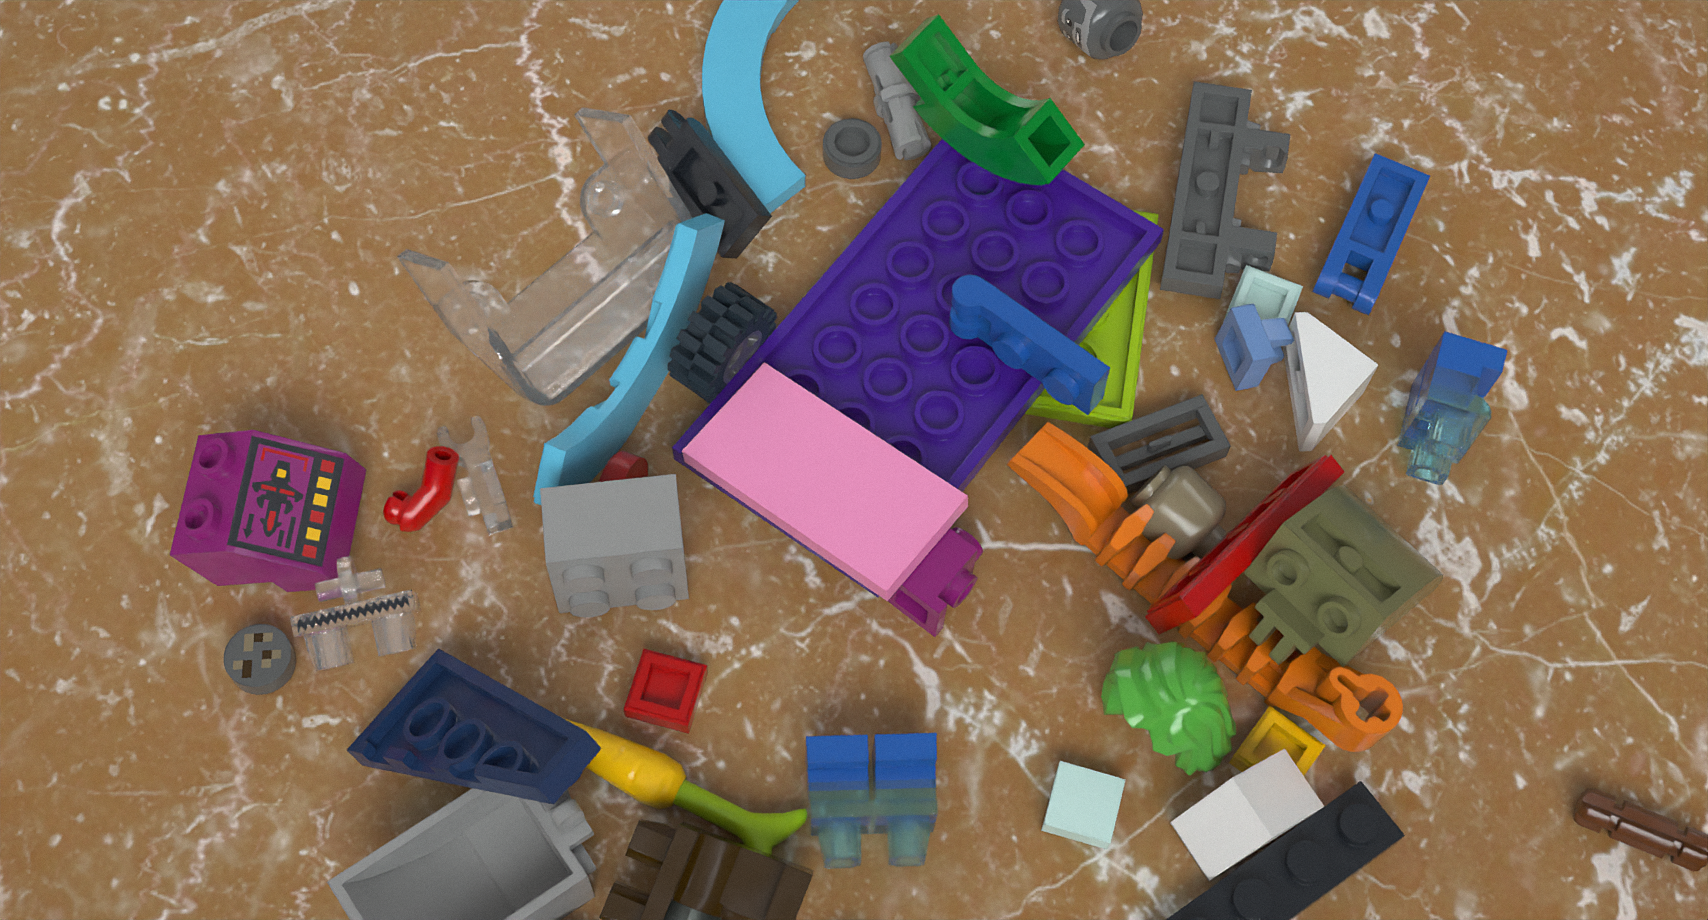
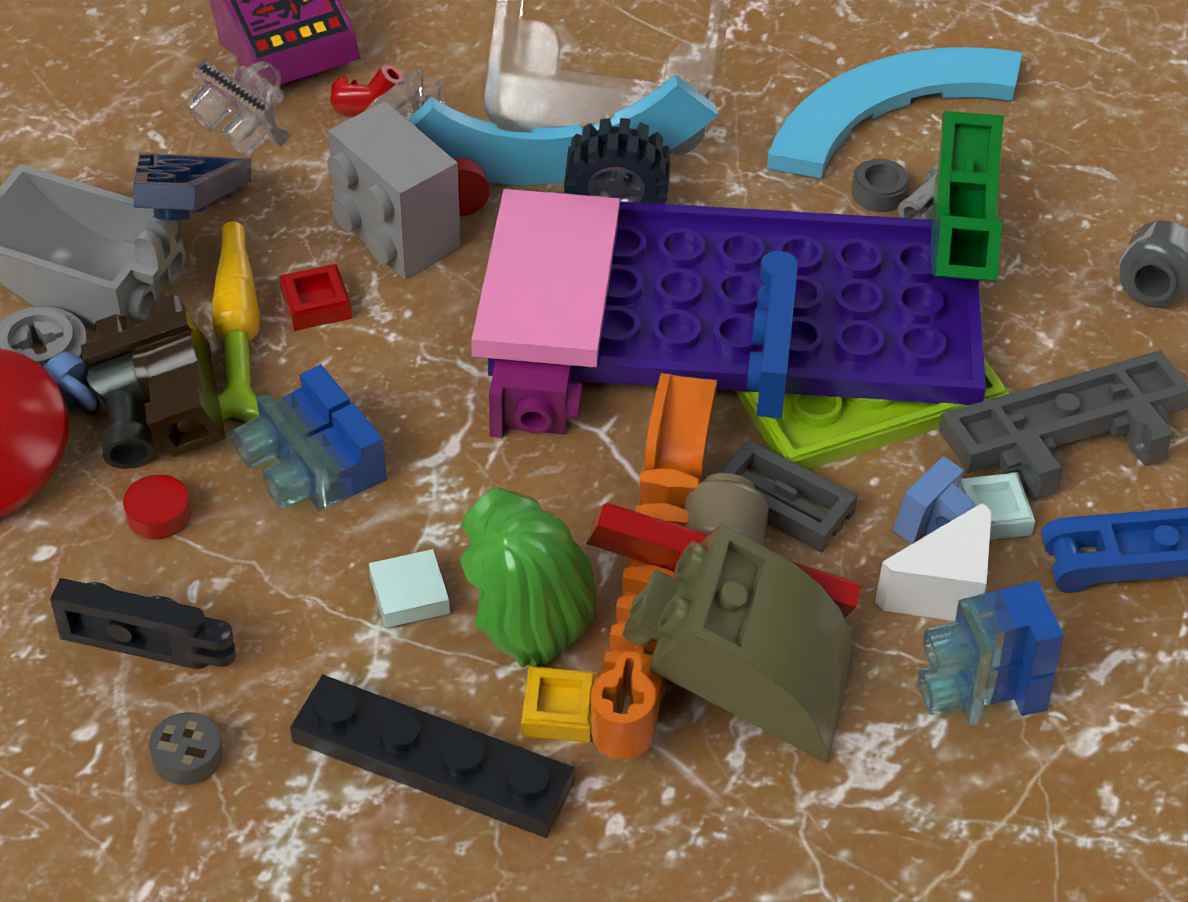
camera: 60 degrees right, 15 degrees down
(260, 659) = (174, 82): dark grey tile -> none
(708, 181) = (757, 115): black hinge -> none
(1246, 814) = (484, 689): white slope -> none

